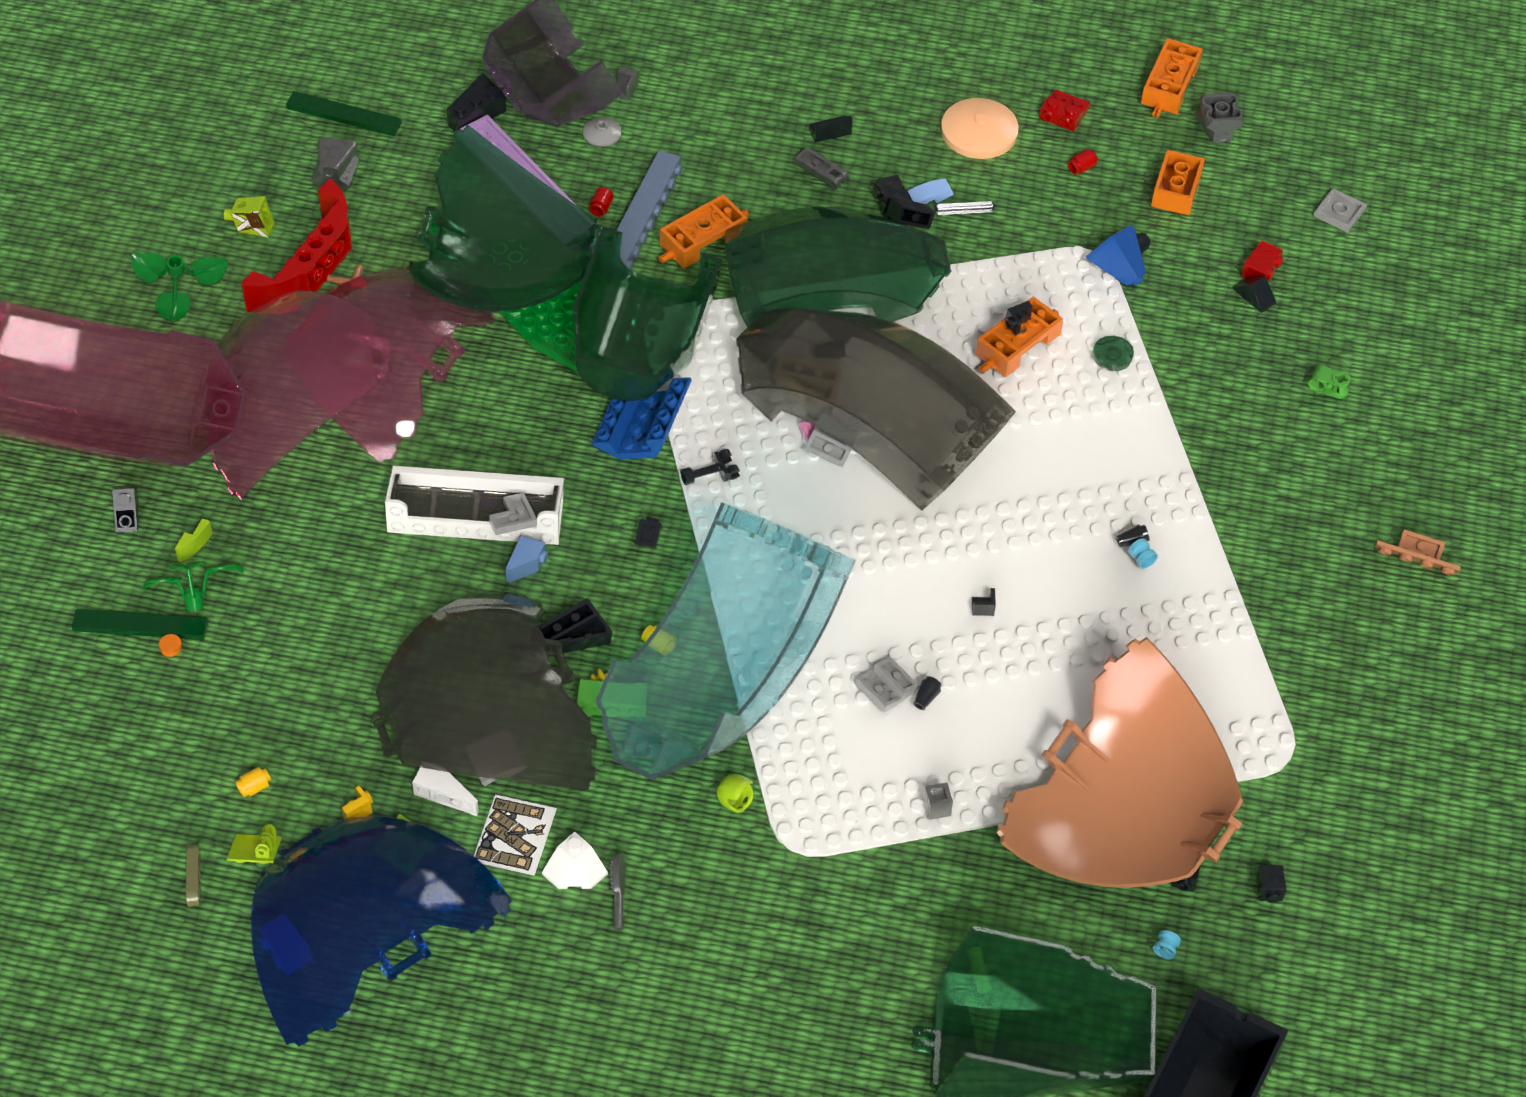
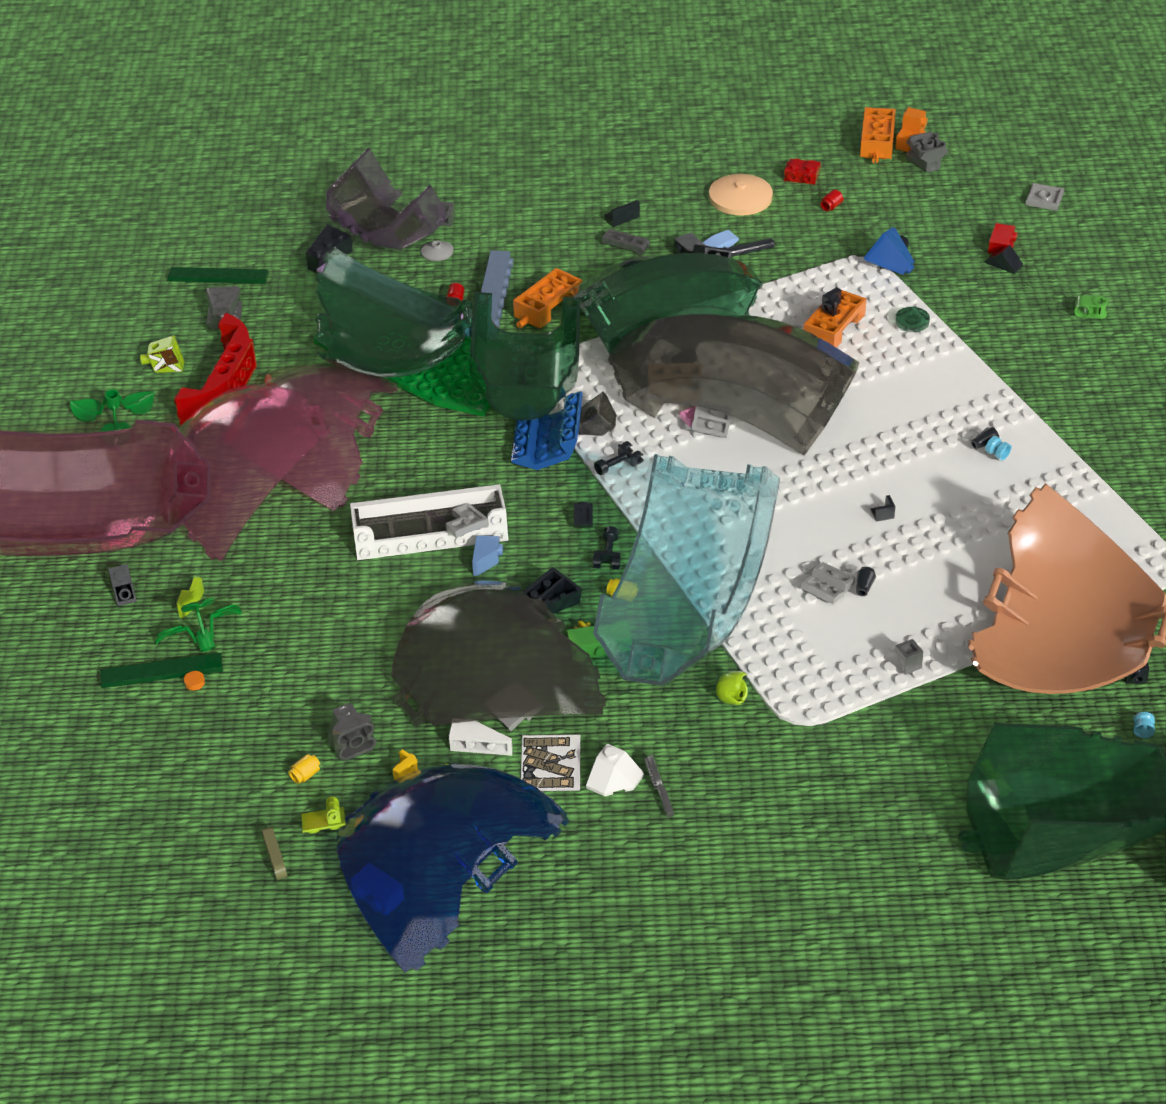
camera: 10 degrees left, 10 degrees down
(311, 752) = (351, 732): none -> flat silver piece
(670, 565) = (610, 535): none -> black bar
(703, 408) = (597, 416): none -> clear smoke slope
(1178, 182) = (913, 199): orange brick -> none
(1215, 79) = (913, 123): none -> orange brick

